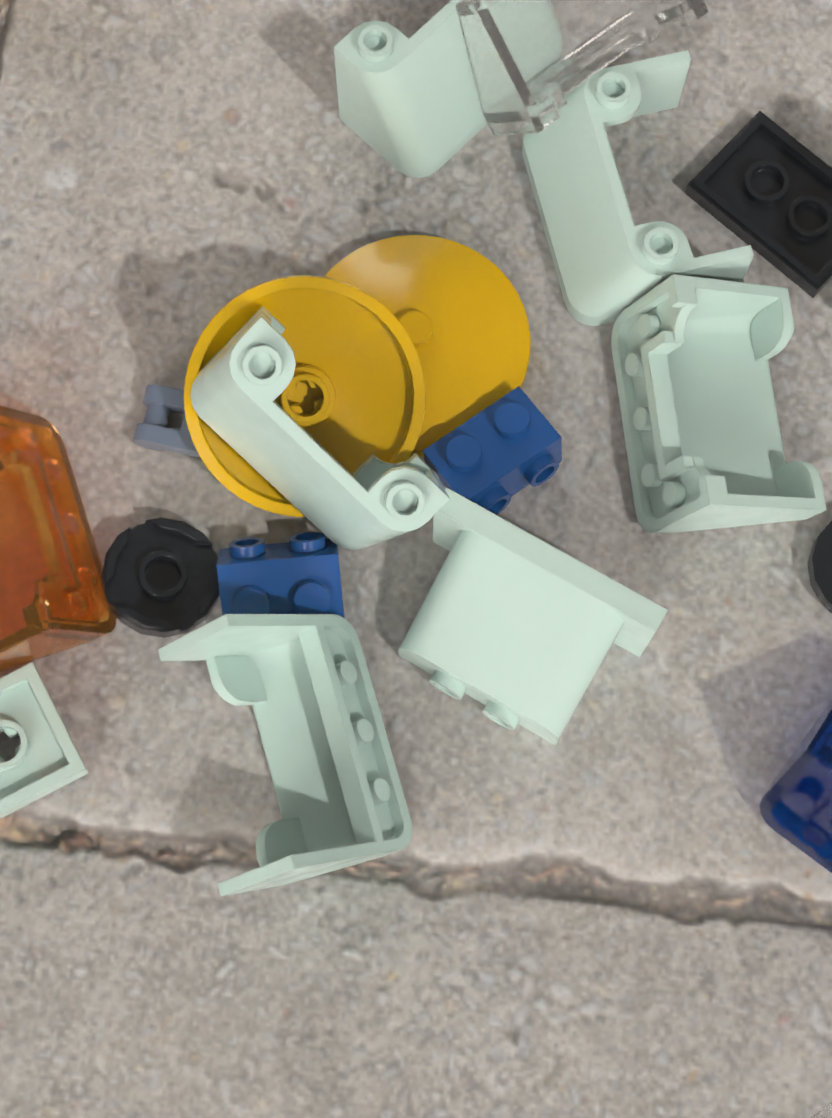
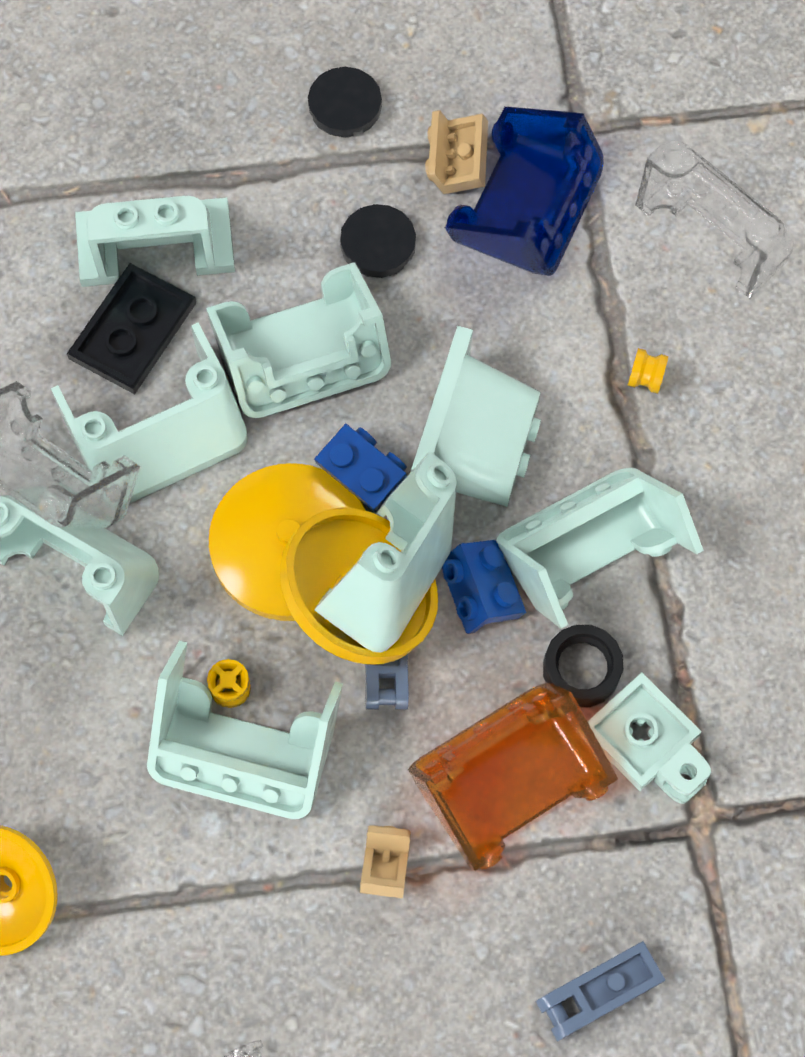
camera: 105 degrees left, 5 degrees down
(83, 664) = (595, 637): none -> black tyre
(140, 204) = (235, 757): none -> light aqua windscreen
(161, 577) = (499, 662): black tile -> none
(230, 210) = (224, 676): none -> yellow wheel
(562, 918) = (648, 370): none -> yellow wheel

